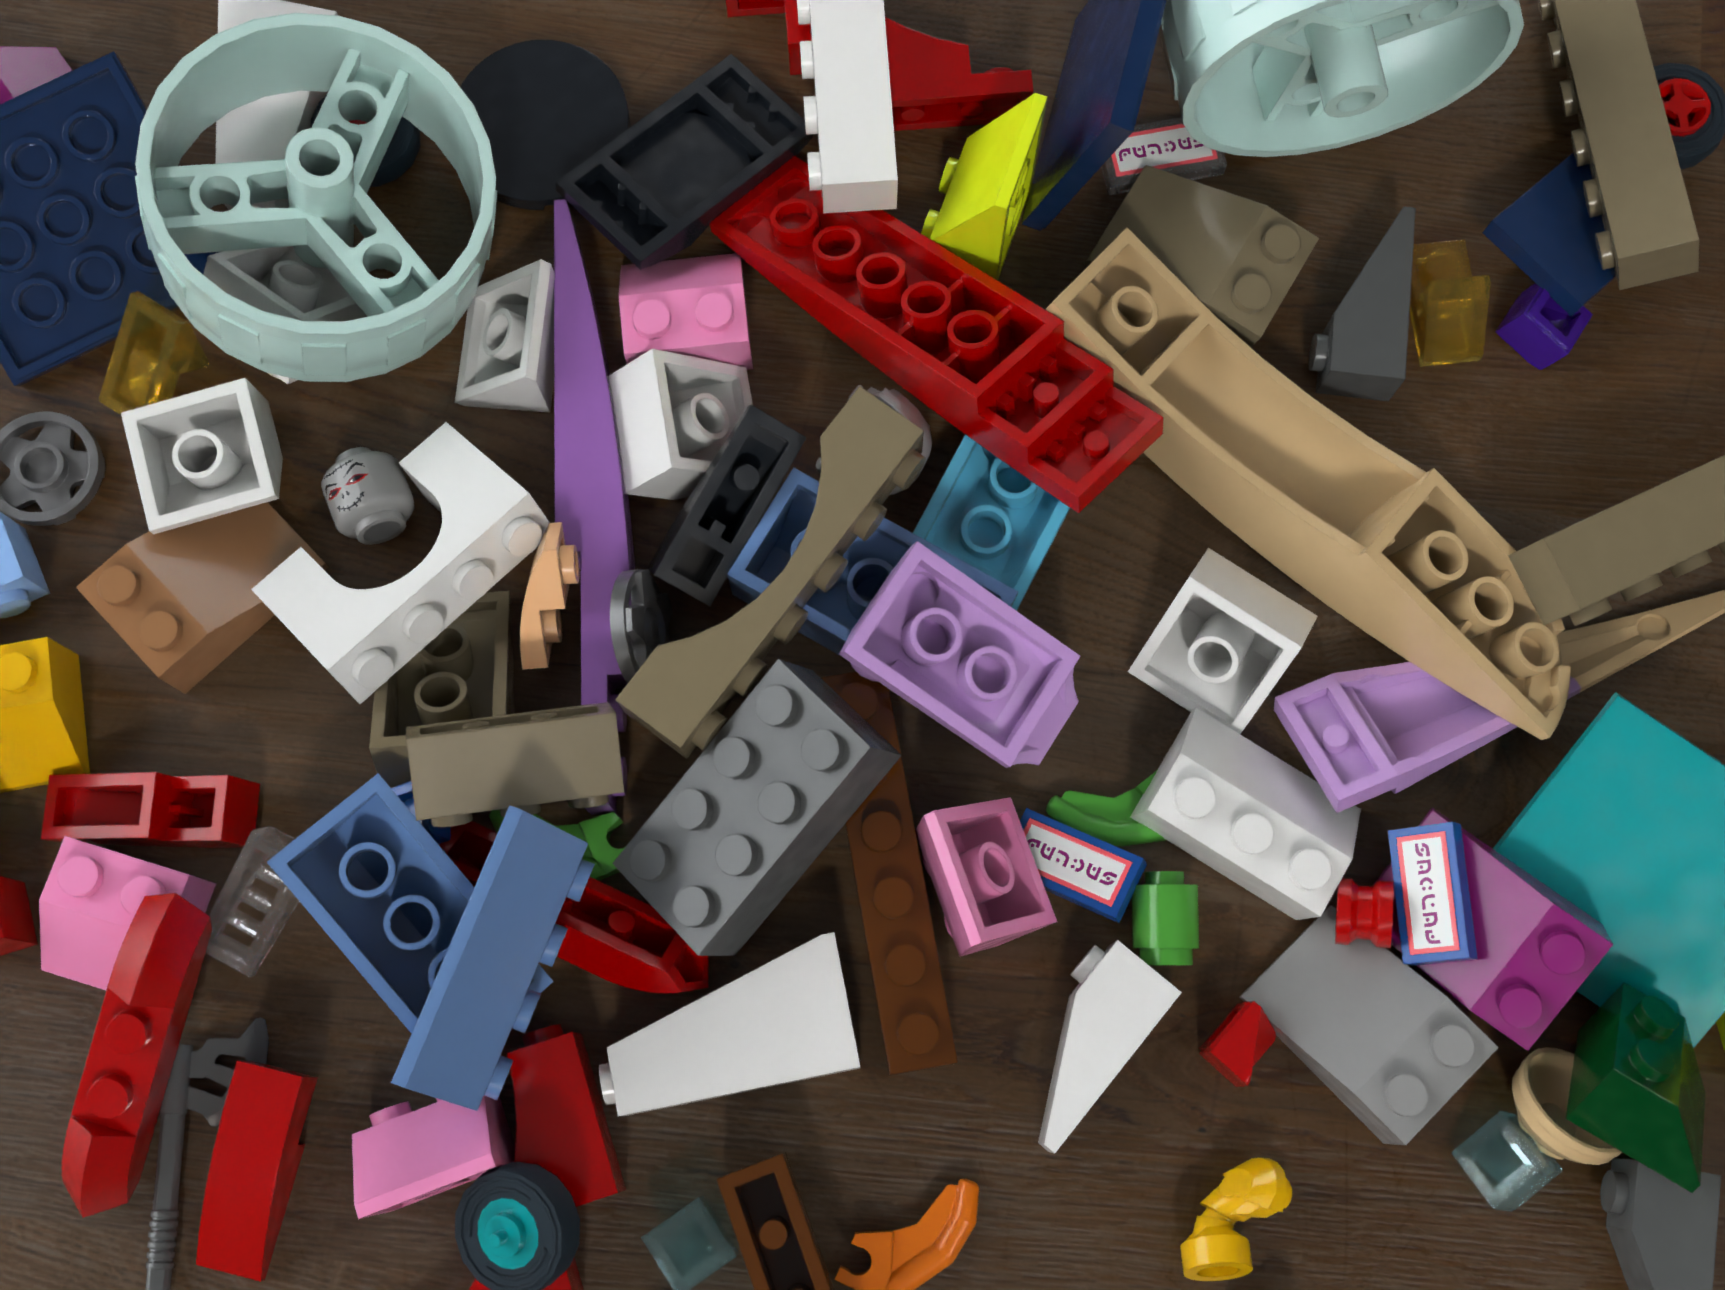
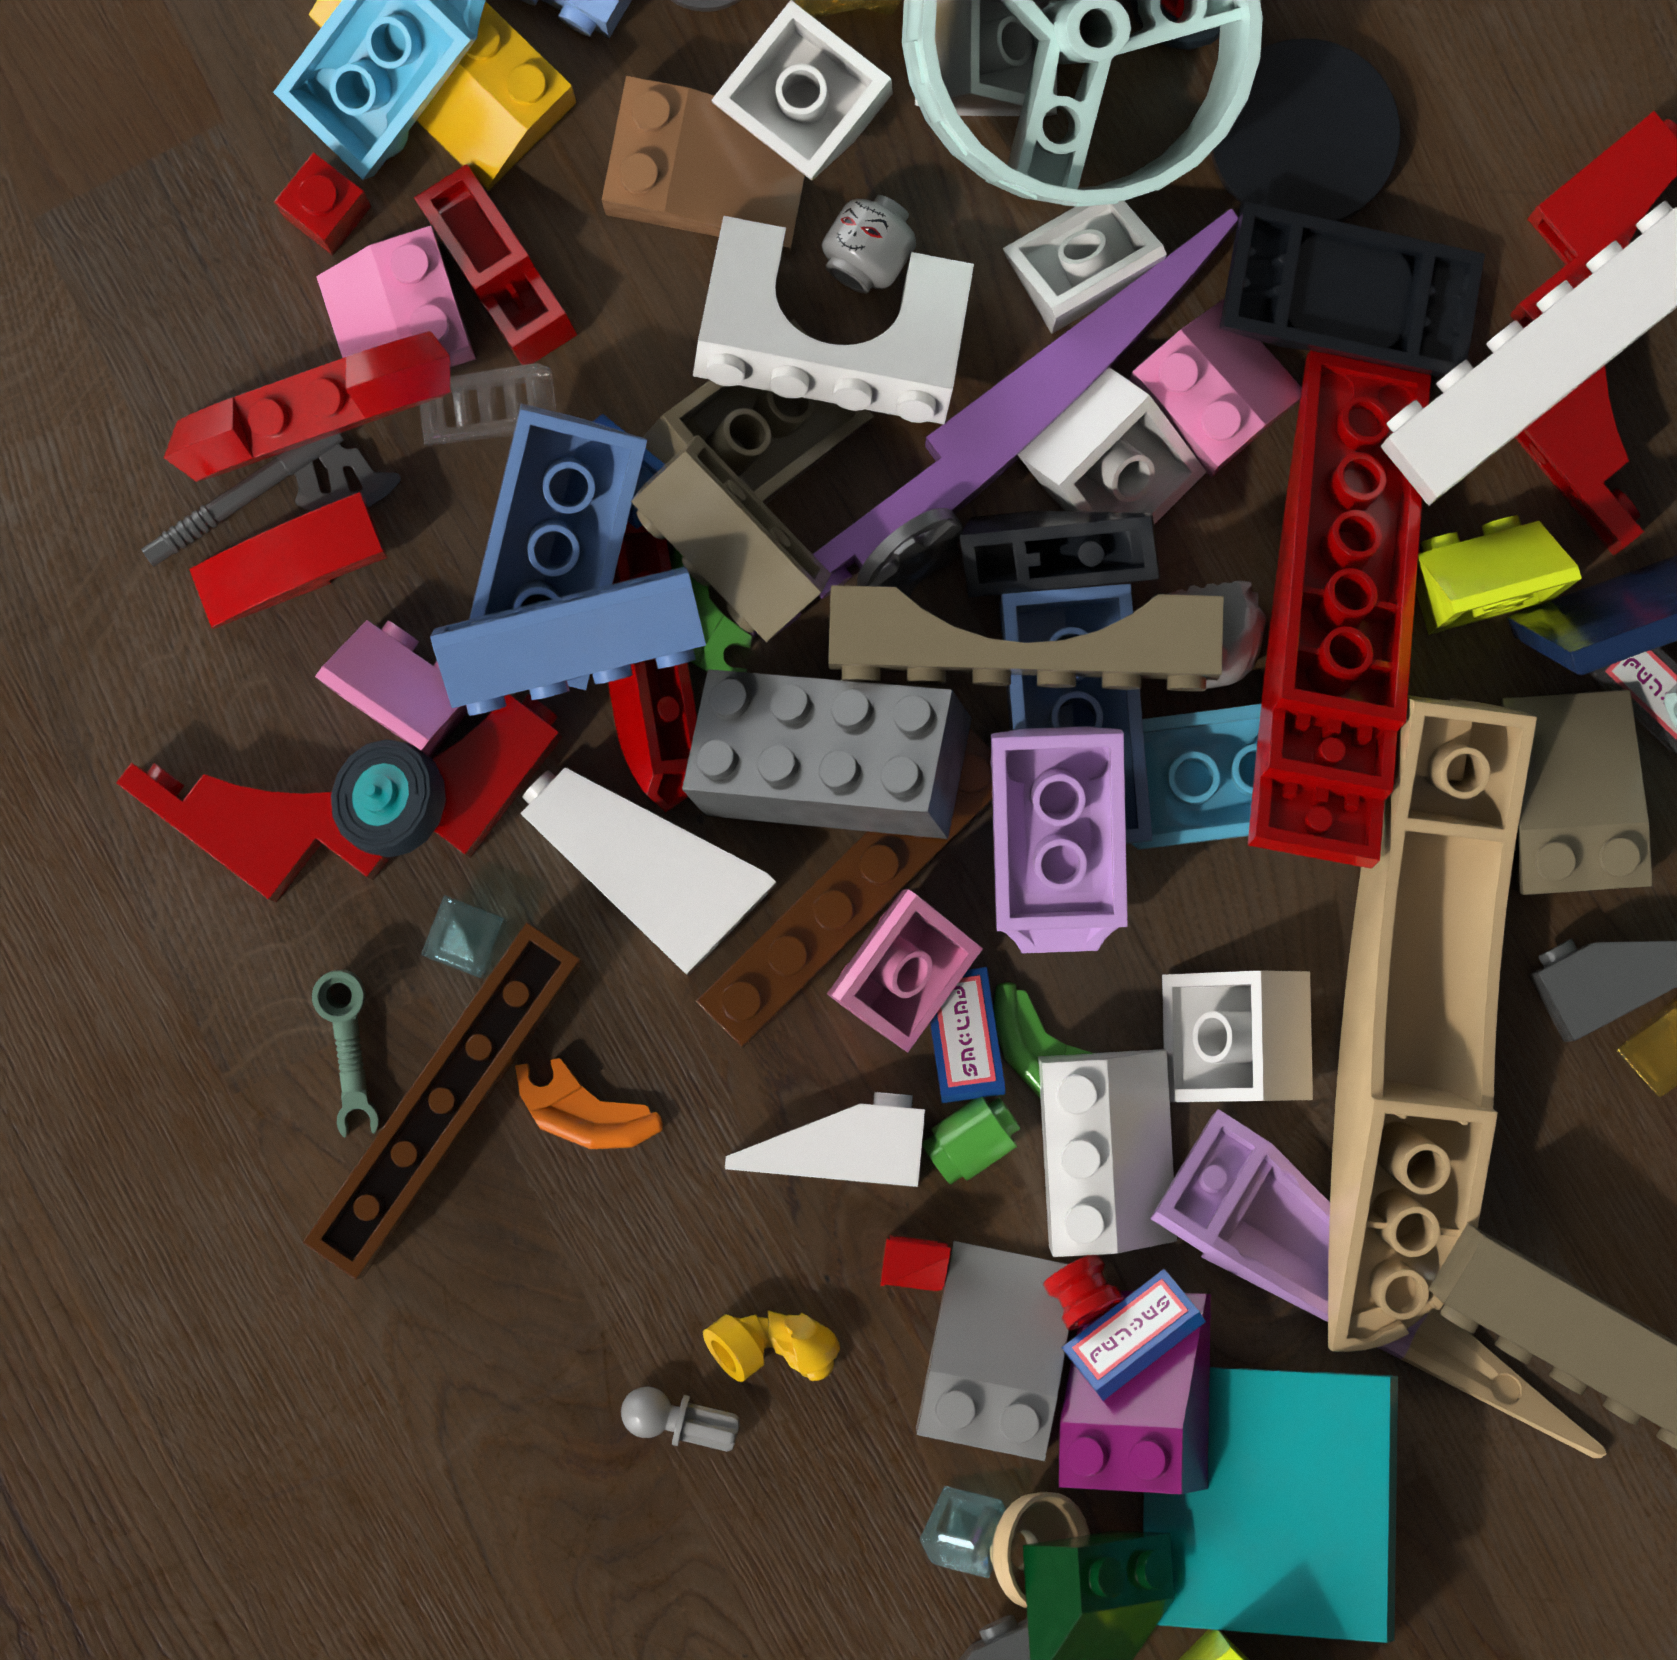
camera: 55 degrees right, 10 degrees up
(547, 589) = (898, 450): light nougat slope -> none

